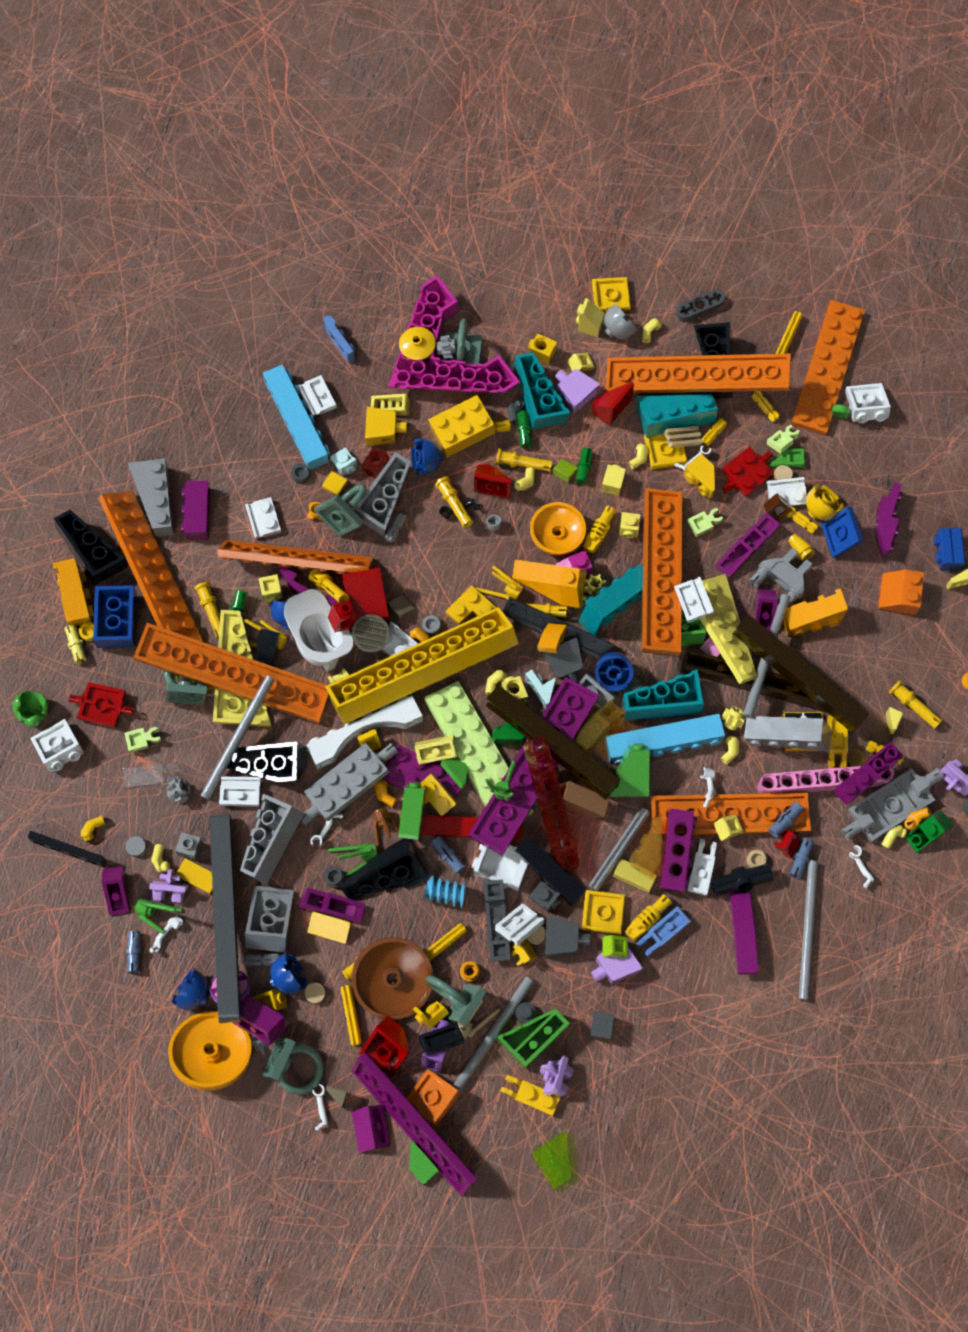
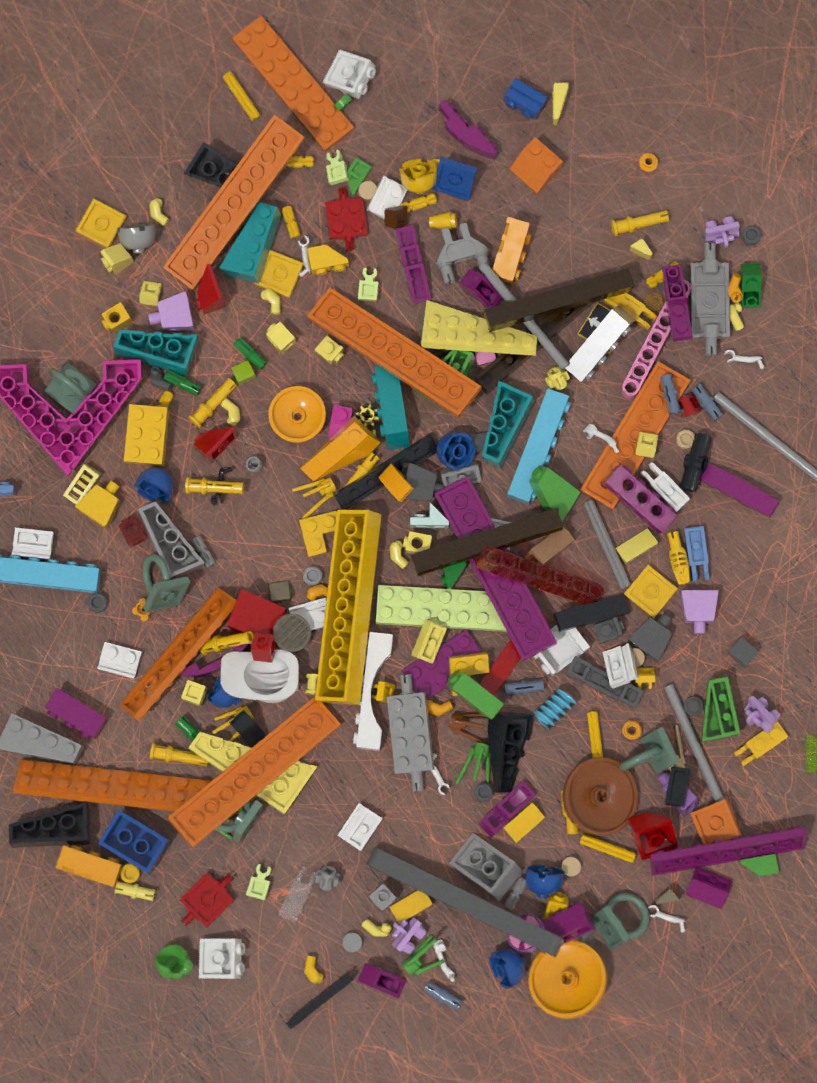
camera: 50 degrees left, 10 degrees up
(237, 737) = (313, 800): light grey piece -> none
(269, 838) = (417, 823): light grey wedge -> none
(273, 762) = (355, 782): black wedge -> none
(334, 483) = (127, 578): yellow tile -> none
(344, 462) = (112, 557): light aqua bracket -> none
(419, 350) = (51, 431): yellow dish -> none
(432, 1015) = (649, 782): yellow bracket -> none
(446, 346) = (62, 401): light grey gear -> none
(456, 769) = (458, 635): bright green tile -> none
(502, 788) = (503, 608): bright green plant -> none
(599, 530) = (318, 380): yellow hinge -> none
(600, 725) = (496, 495): clear yellow slope -> none
(615, 946) = (688, 600): lime slope -> none
(649, 855) = (630, 523): clear yellow slope -> none
(692, 432) = (283, 239): tan tile -> none
(694, 599) = (441, 344): white plate -> none
(705, 299) = (159, 139): dark grey beam -> none
(733, 749) = (583, 396): light yellow arm -> none

